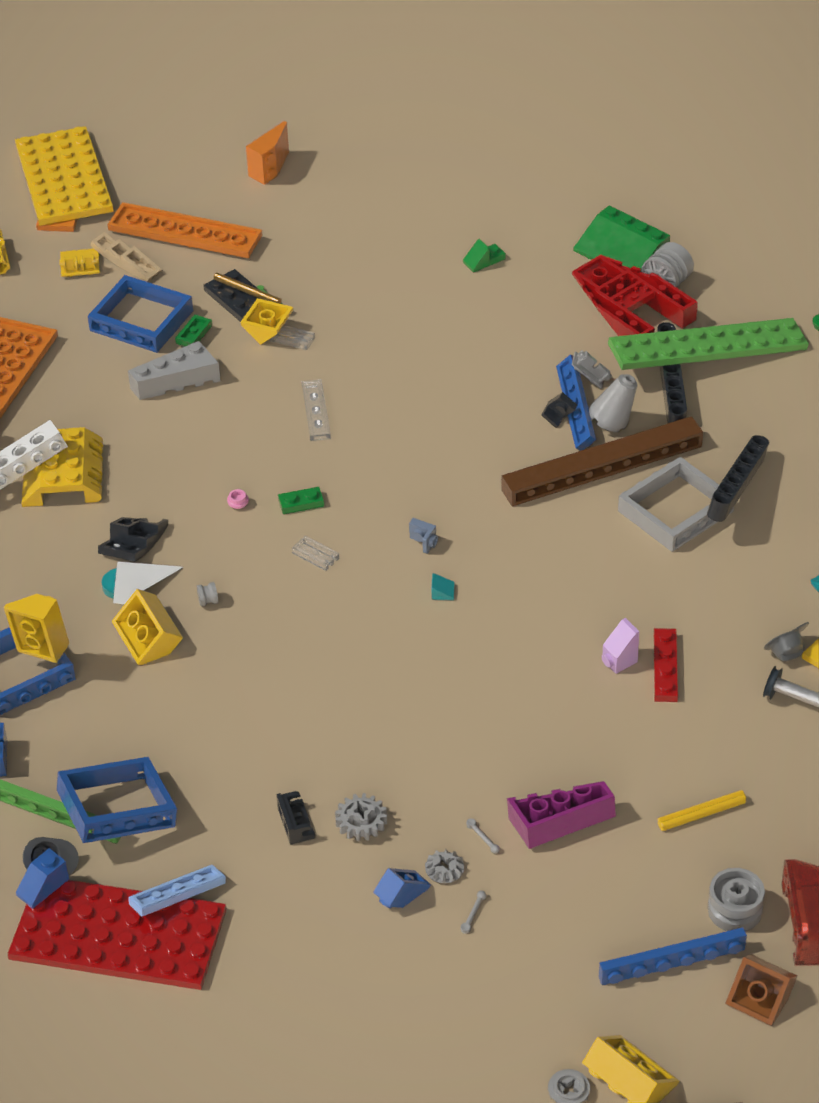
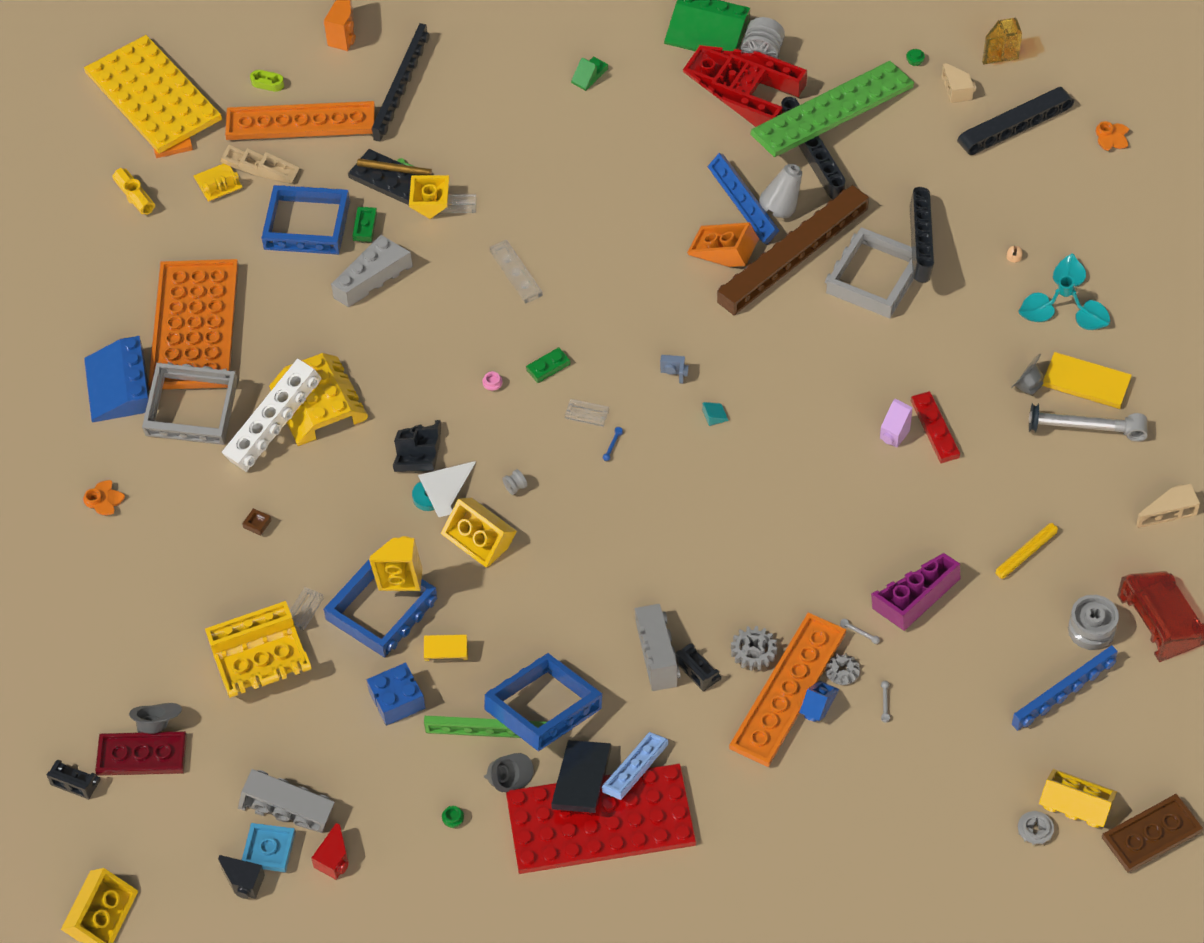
camera: 20 degrees left, 10 degrees up
(42, 878) = (518, 794): blue slope -> none
(55, 723) = (445, 647): none -> yellow hinge
(115, 882) = (581, 776): none -> black tile
(174, 190) = (267, 80): none -> lime beam
(260, 786) = (657, 647): none -> light grey wedge
(295, 220) = (399, 83): none -> black plate
(337, 579) = (618, 431): none -> blue hinge
(355, 879) = (786, 688): none -> orange plate
(536, 438) = (725, 243): none -> orange slope
(558, 409) = (732, 208): black bracket -> none
(584, 363) = (740, 160): light grey hinge -> none
(760, 989) = (1146, 692): dark orange slope -> none

